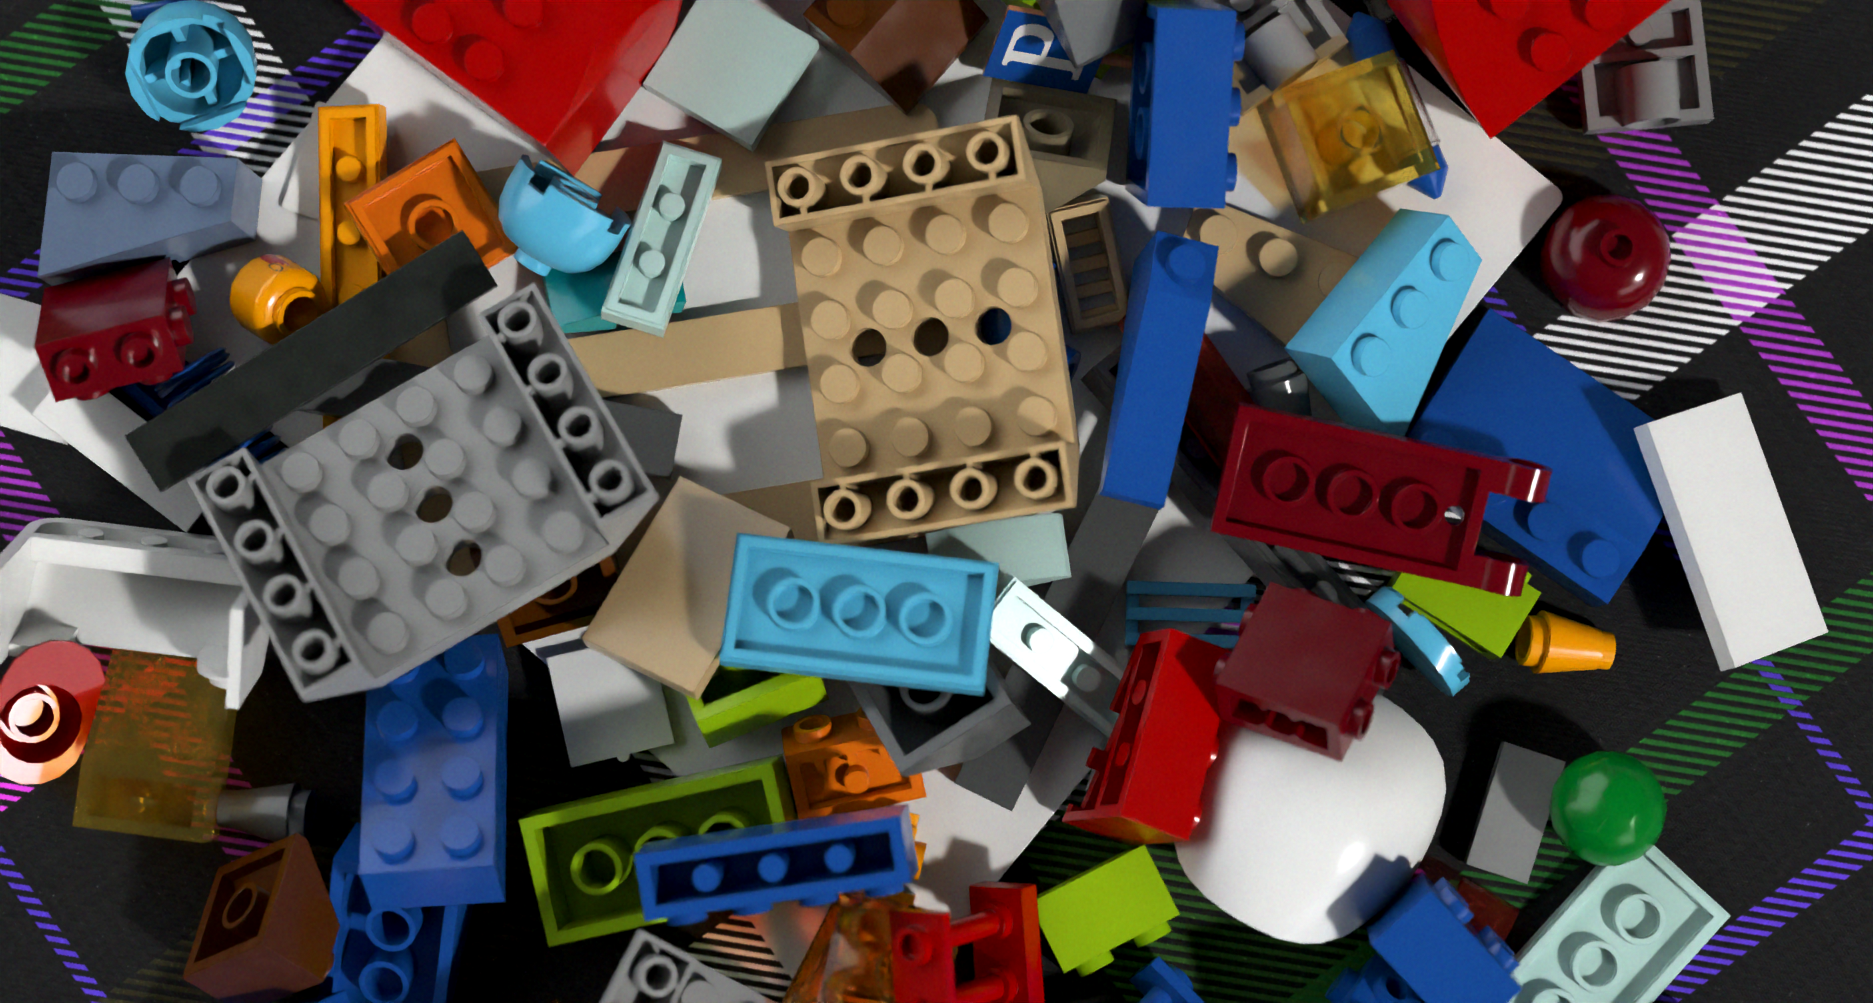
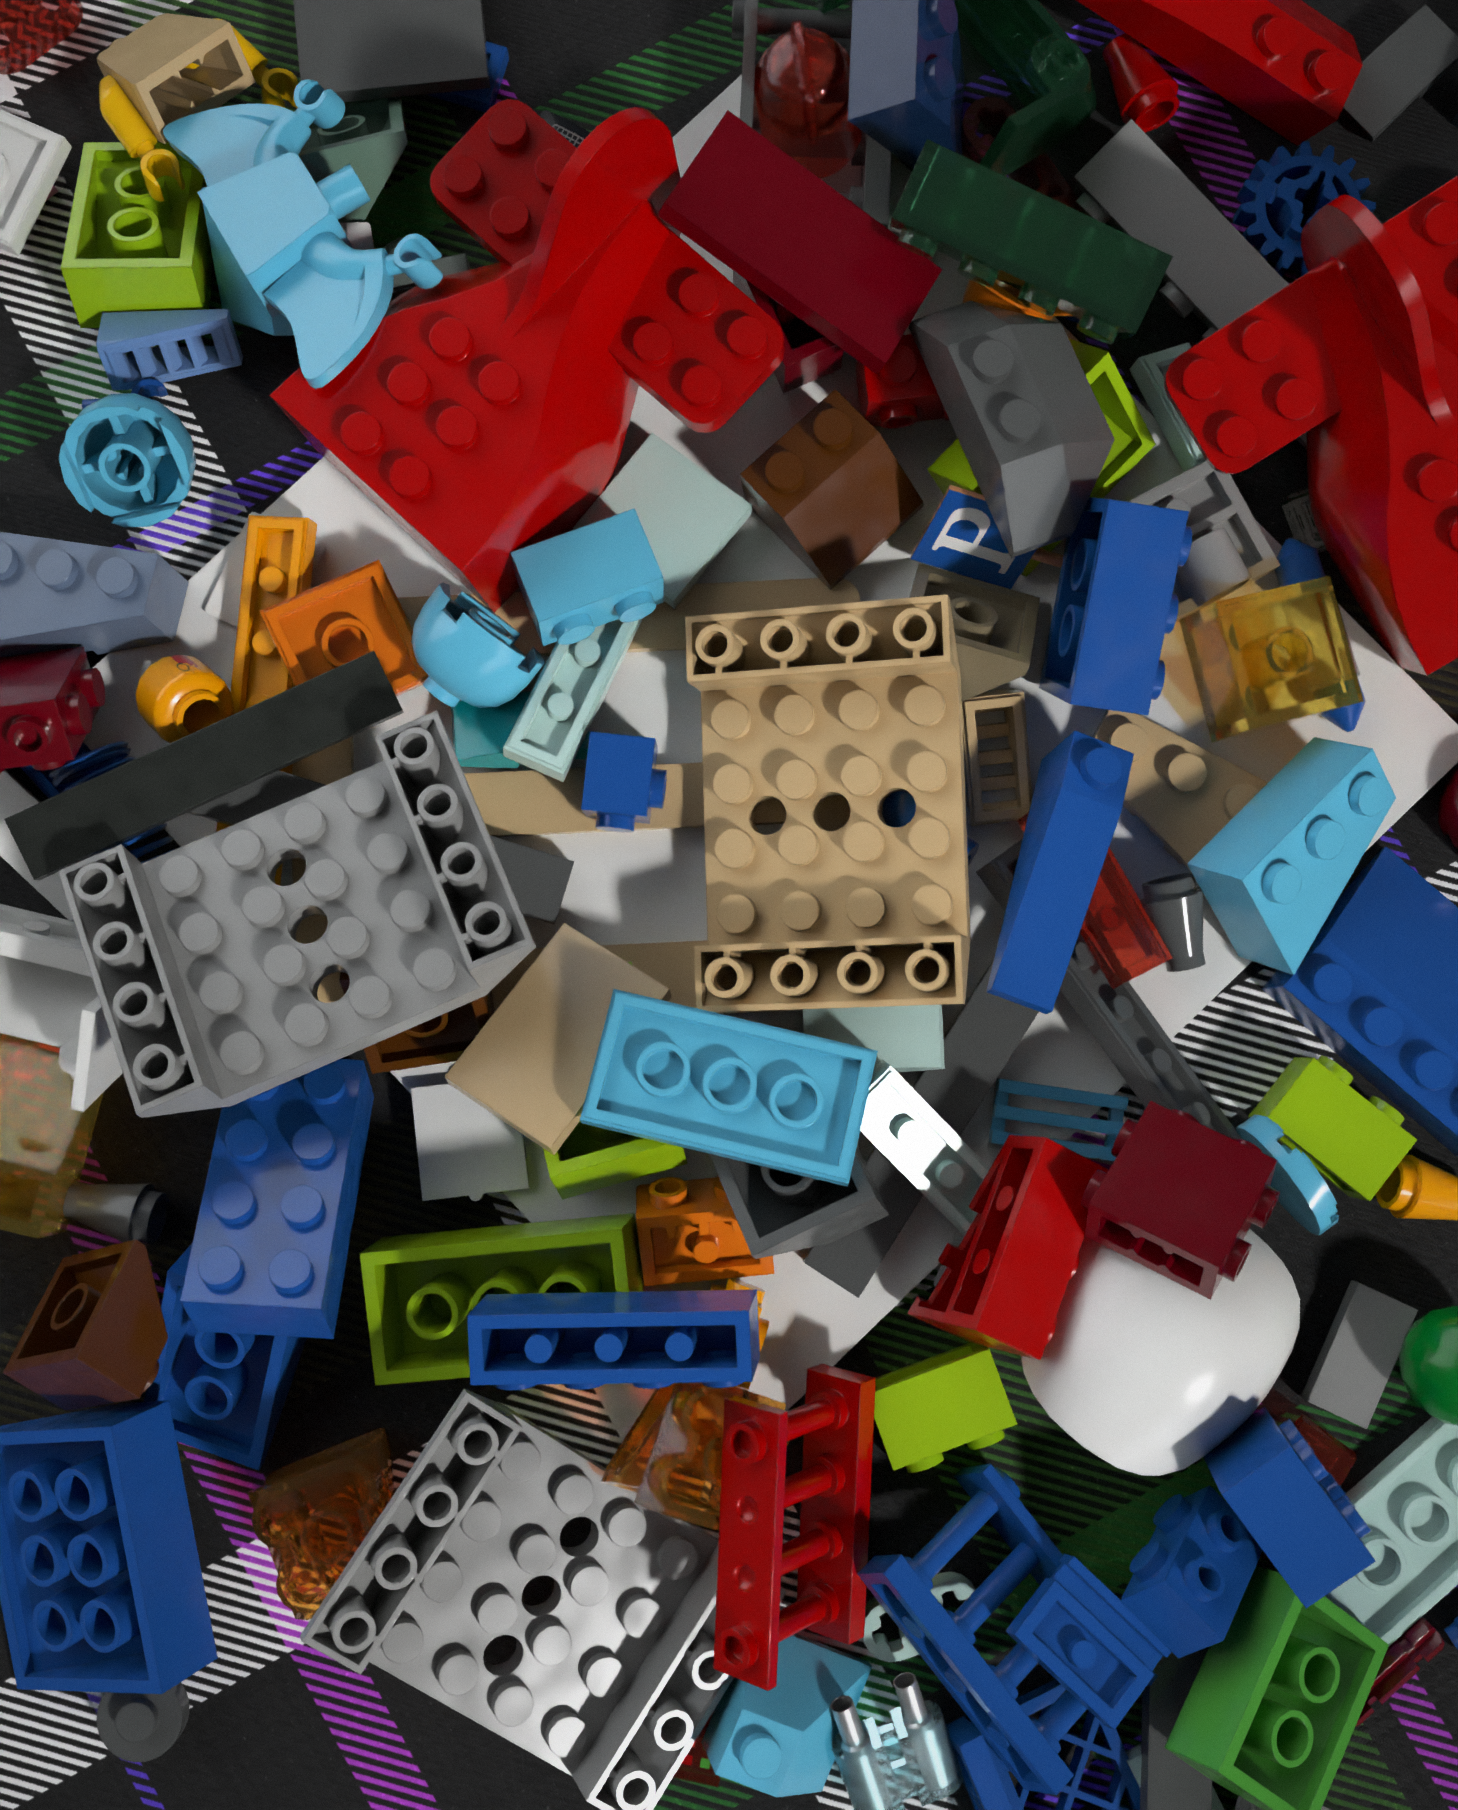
camera: 10 degrees right, 0 degrees up
(666, 135) = (589, 578): none -> medium azure brick
(721, 330) = (622, 781): none -> blue brick
(1369, 497) = (1260, 1025): dark red hinge -> none

